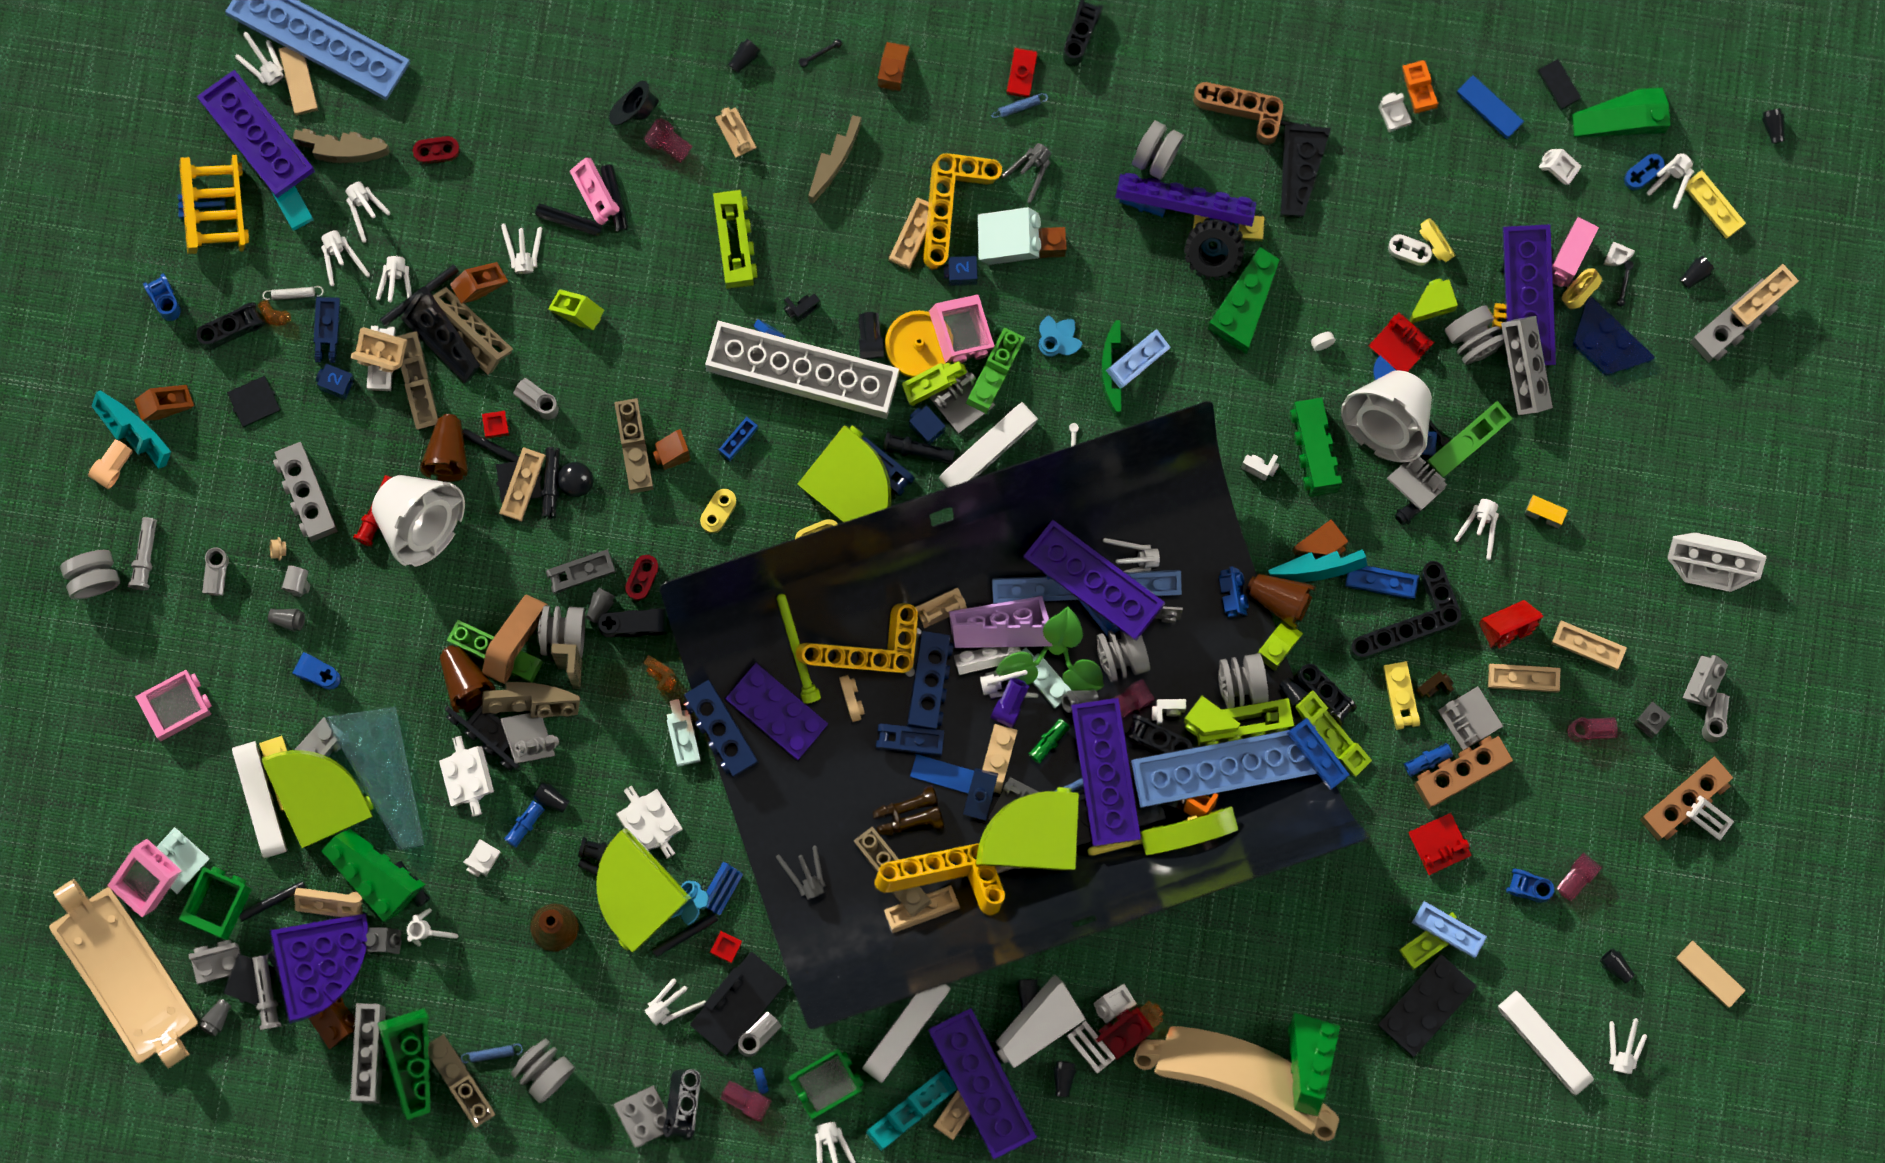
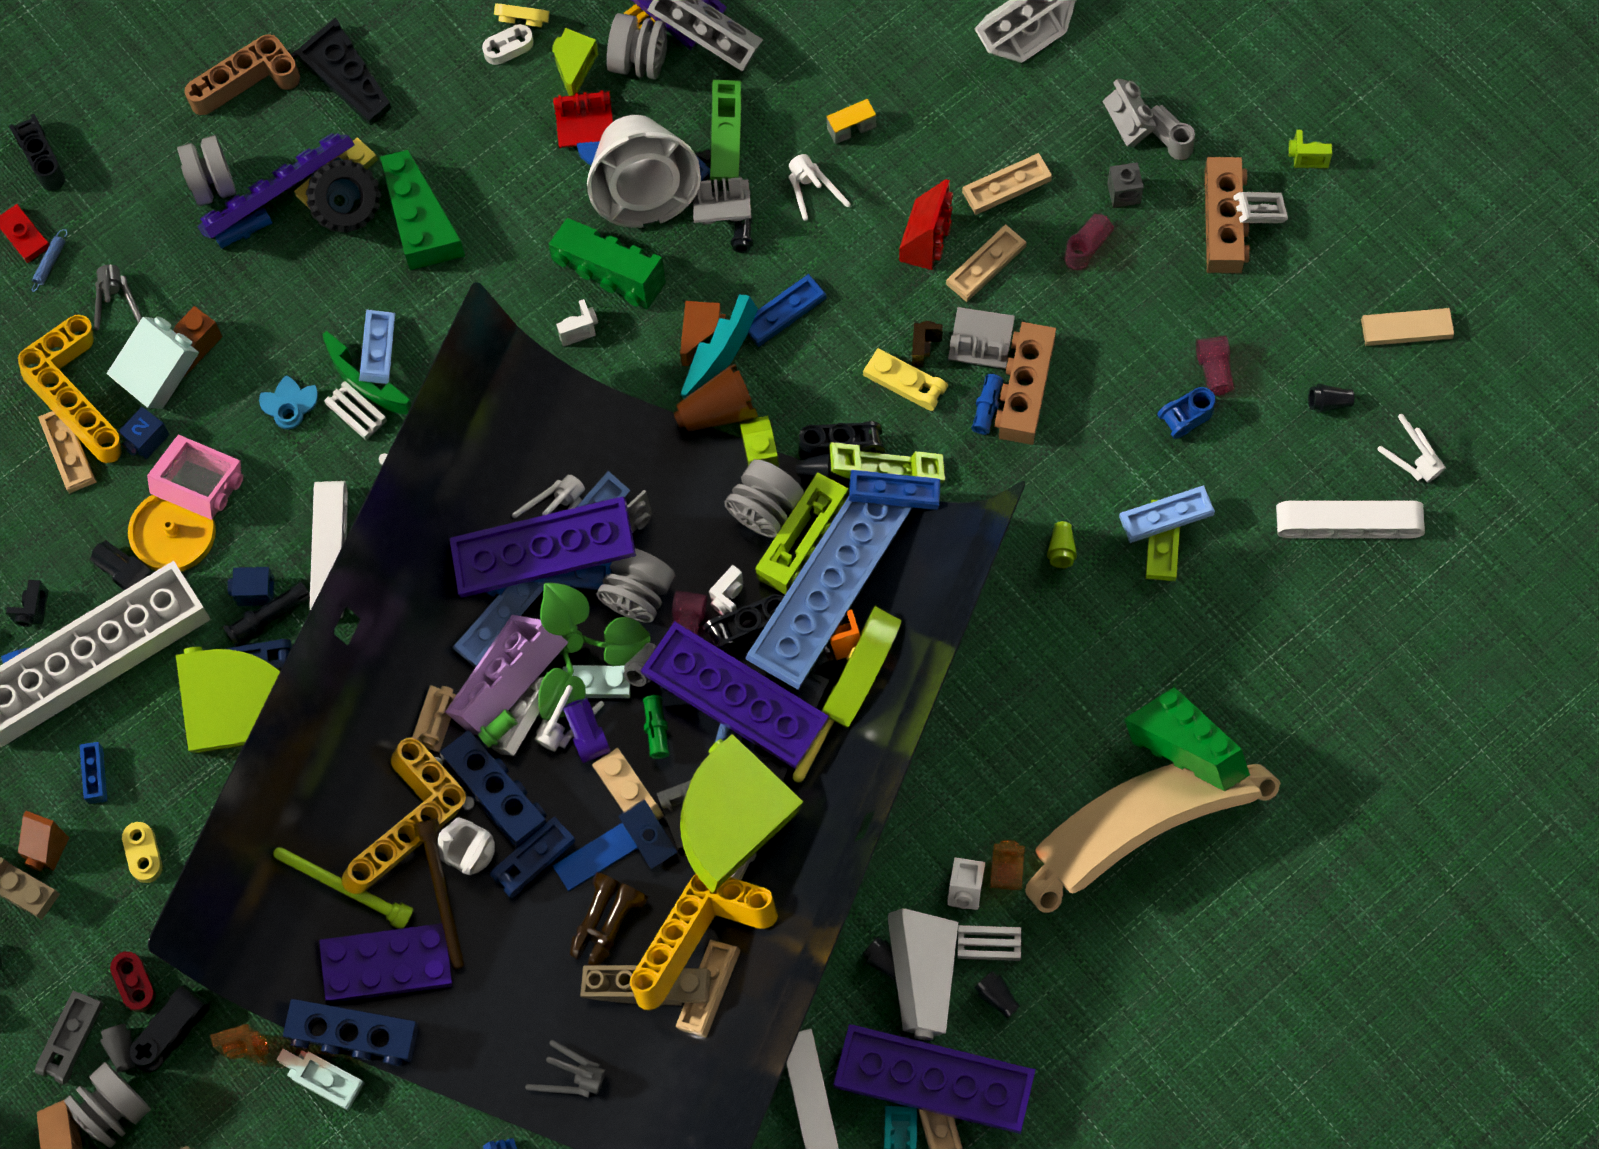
camera: 40 degrees left, 10 degrees down
(568, 658) = (138, 1121): dark tan fence -> none
(854, 707) = (454, 881): tan plate -> none
(868, 669) = (427, 833): none -> dark brown piece
(881, 697) = (470, 848): none -> white helmet
(932, 381) = (217, 544): lime hinge -> none
(953, 403) = (262, 536): light grey hinge -> none
(965, 651) = (497, 728): none -> bright green pin
(995, 370) = (263, 480): bright green slope -> none
(1089, 362) = (340, 395): none -> white tile
(1126, 1032) = (1006, 895): dark red bracket -> none
(1209, 719) = (773, 555): lime slope -> none
(1234, 583) = (682, 447): blue hinge -> none
(1322, 341) = (517, 179): white tile -> none
(1374, 883) = (1062, 546): none -> lime cone
(1414, 624) = (850, 312): black beam -> none
(1427, 1005) = (1221, 597): black plate -> none
(1440, 844) = (1076, 459): red hinge -> none
(1778, 819) = (1309, 155): none -> lime bracket

